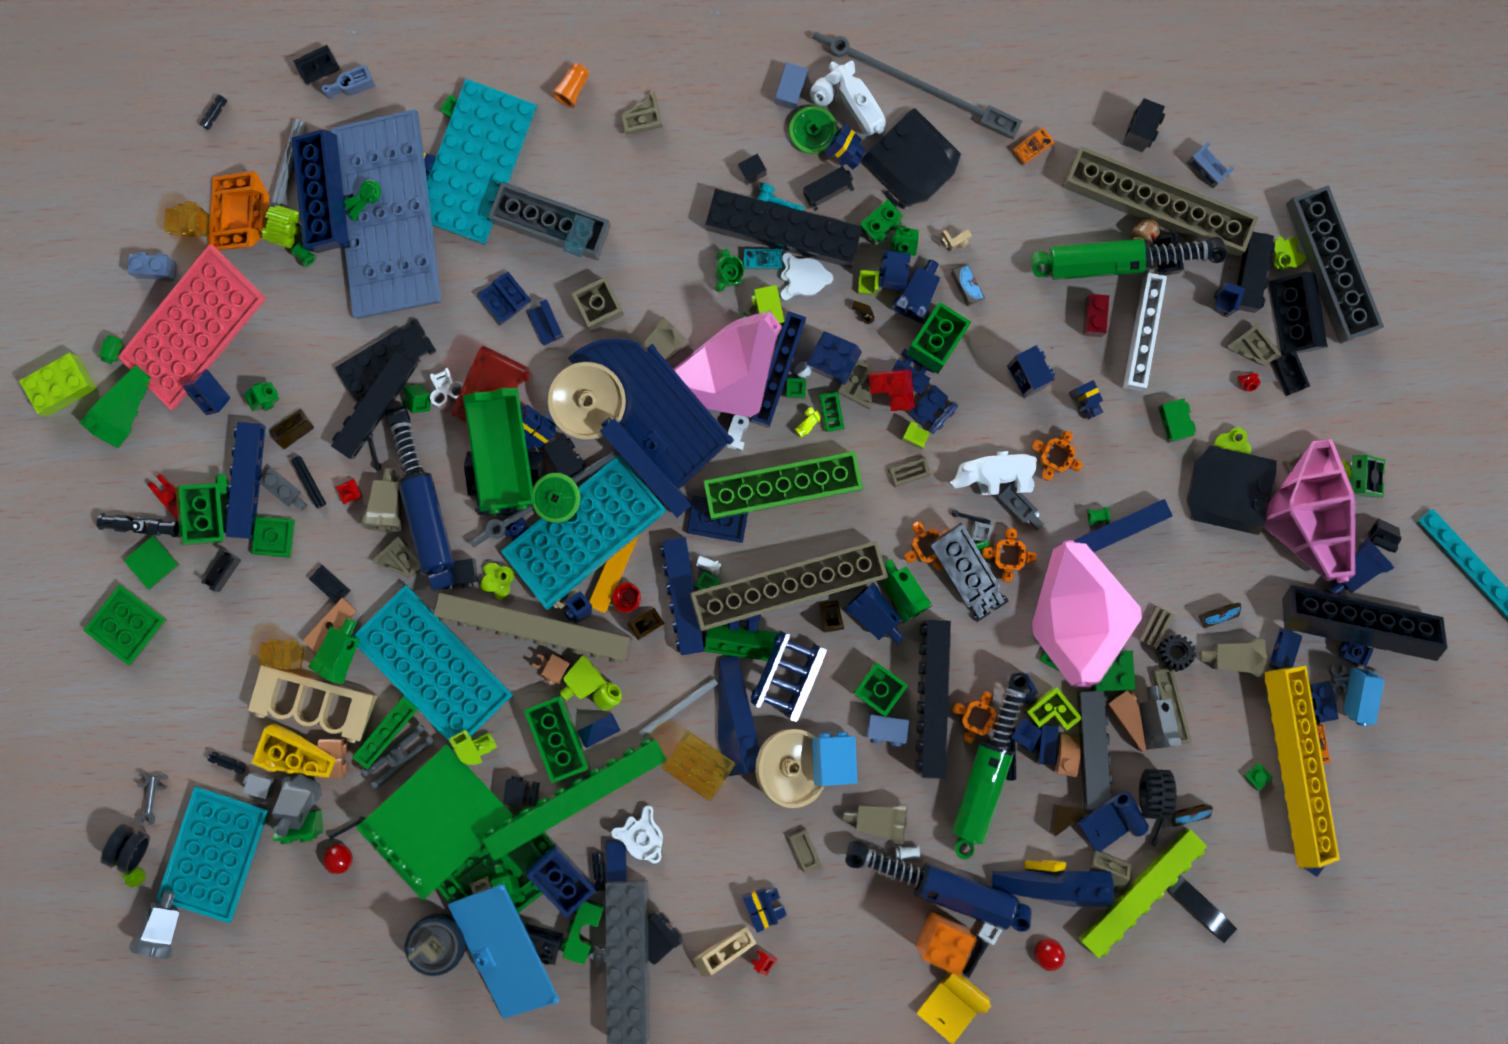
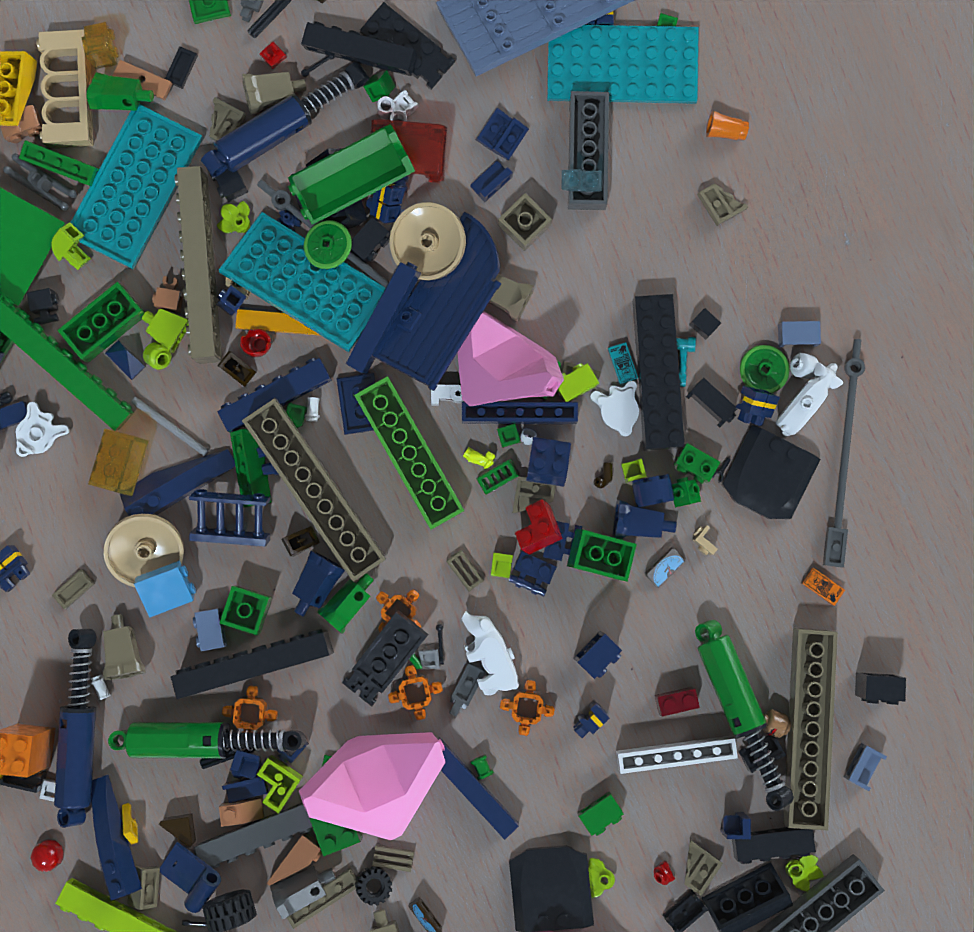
camera: 70 degrees right, 0 degrees up
(725, 264) = (604, 328): green hair -> none

